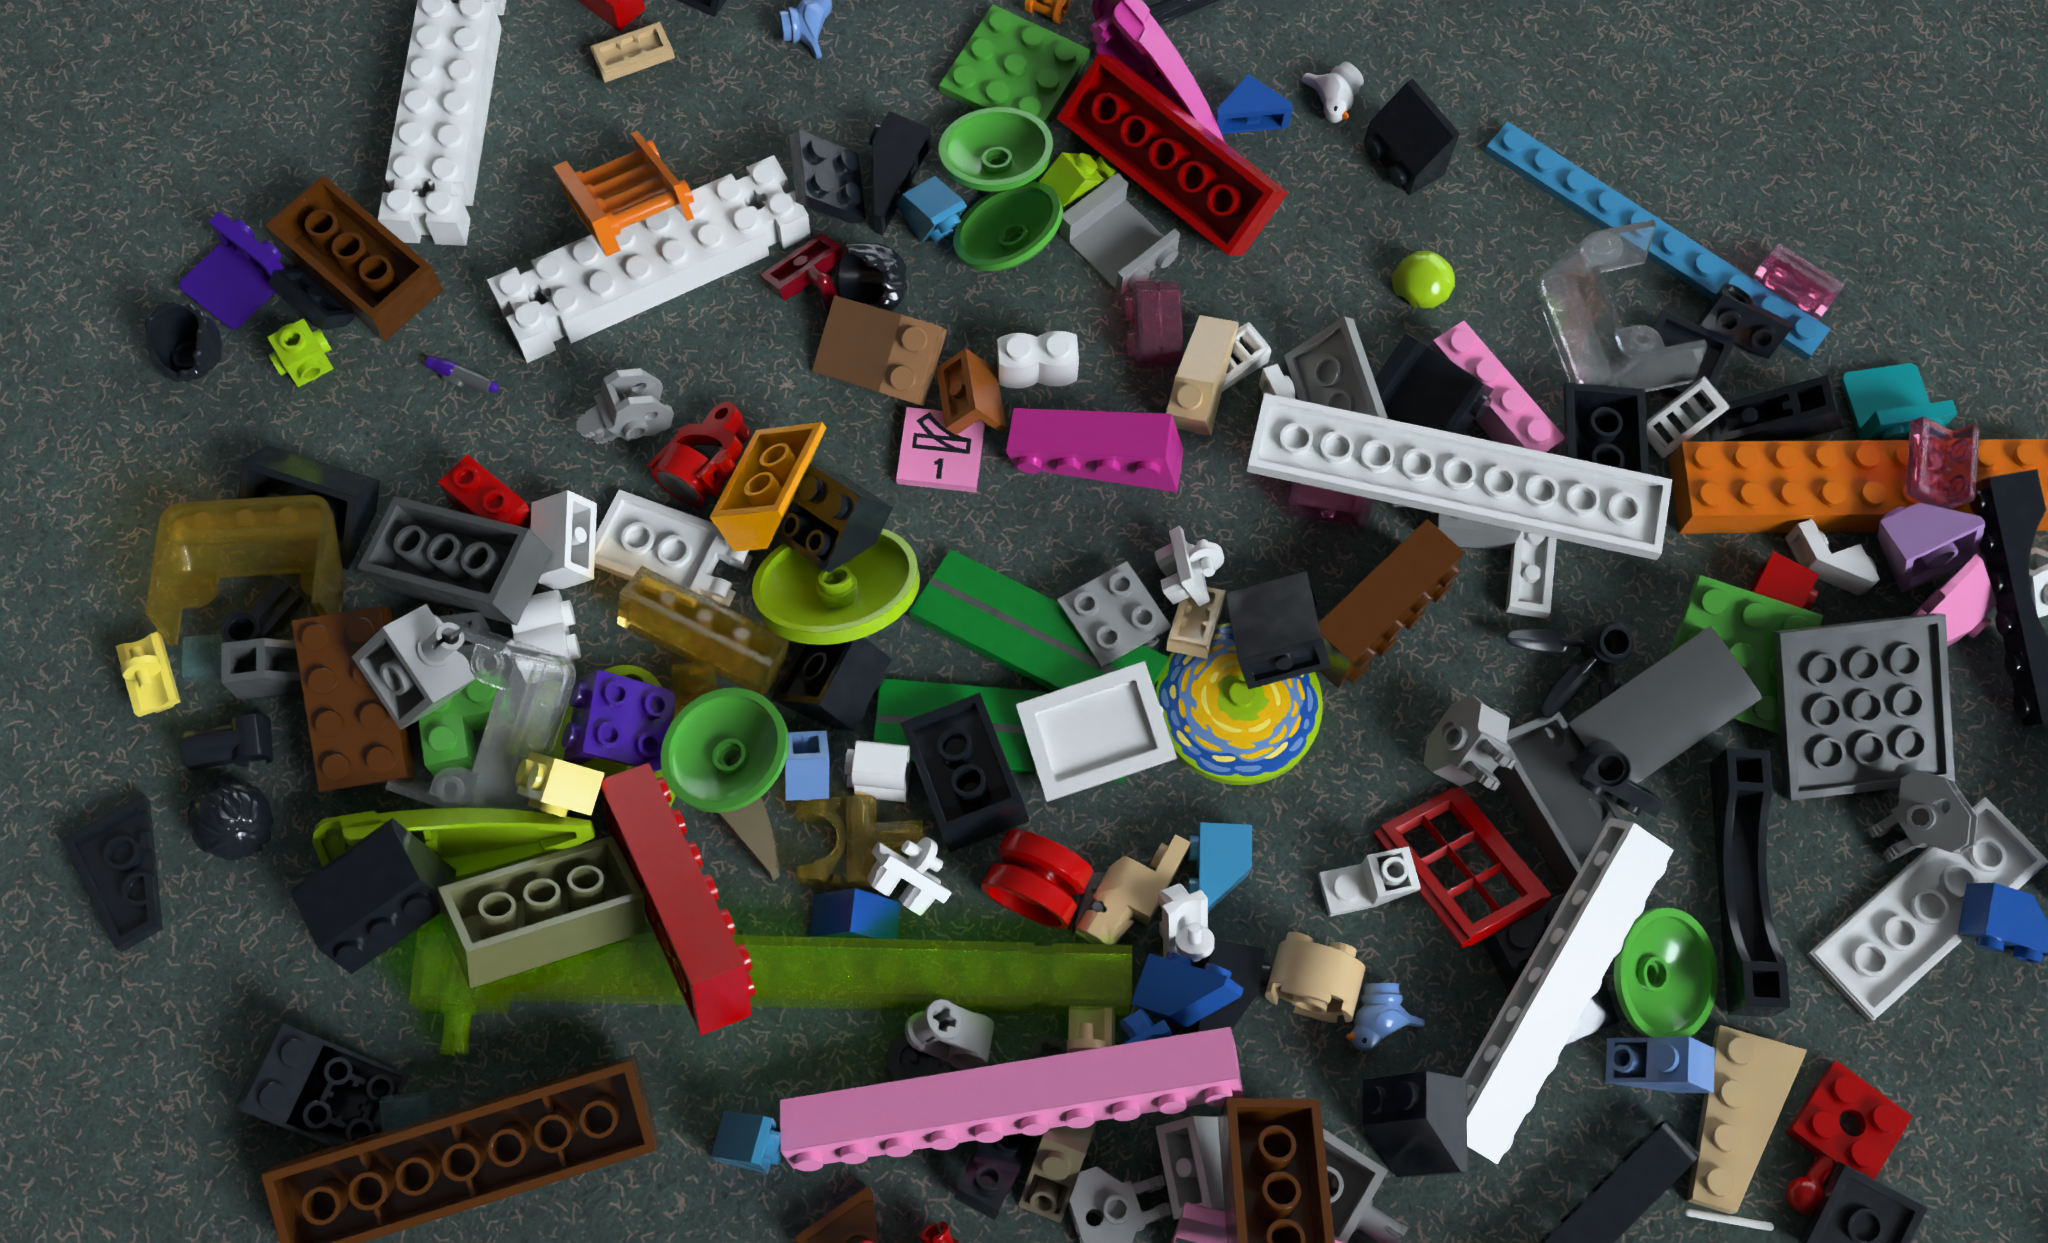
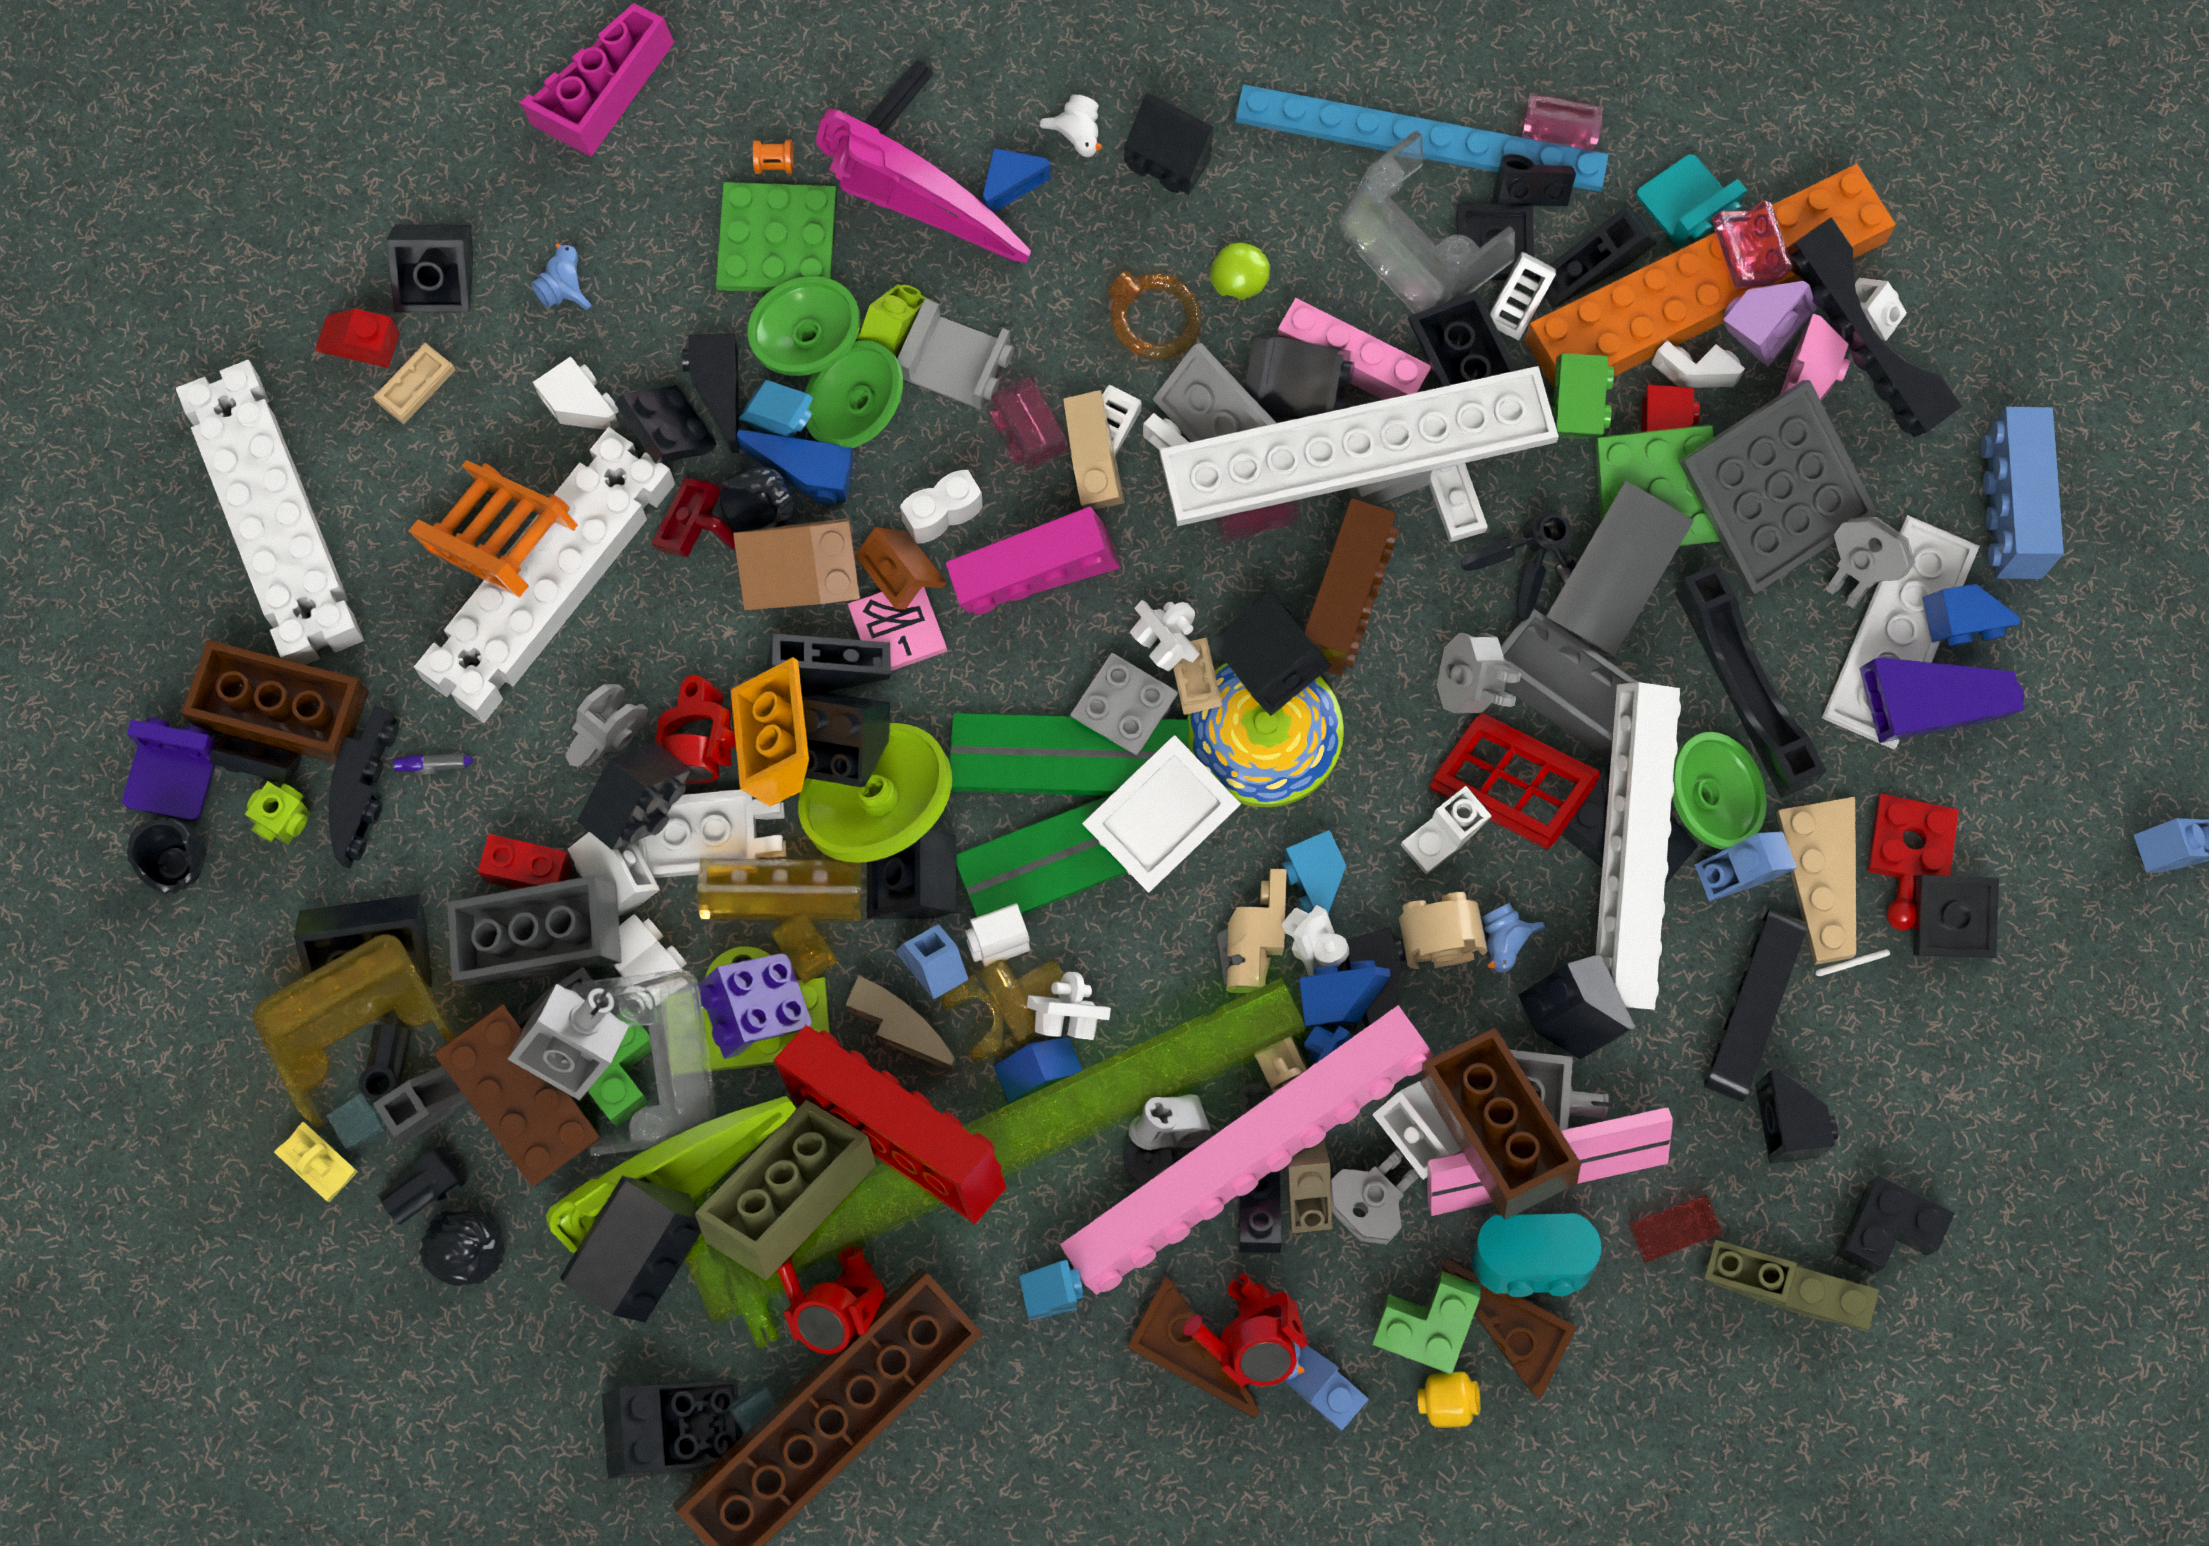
camera: 25 degrees left, 5 degrees up
(120, 871) = (392, 1338): black wing -> none
(370, 371) = (351, 799): none -> black slope
(518, 1052) = (836, 1309): none -> red piece
(558, 785) = (739, 1080): light yellow brick -> none
(609, 477) = (634, 796): none -> black brick
(714, 732) = (846, 966): bright green dish -> none
(760, 121) = (574, 399): none -> white slope
(860, 449) = (831, 662): none -> black slope
(939, 273) = (810, 466): none -> blue slope
(965, 772) = (1068, 901): black slope -> none
(1037, 878) = (1176, 961): red wheel -> none
(1171, 155) = (964, 259): red brick -> none
(1308, 250) = (1128, 288): none -> clear orange piece
(1616, 780) = (1607, 646): black plate -> none
(1700, 528) = (1581, 395): none -> bright green brick
(1934, 988) = (1935, 697): none -> dark purple slope

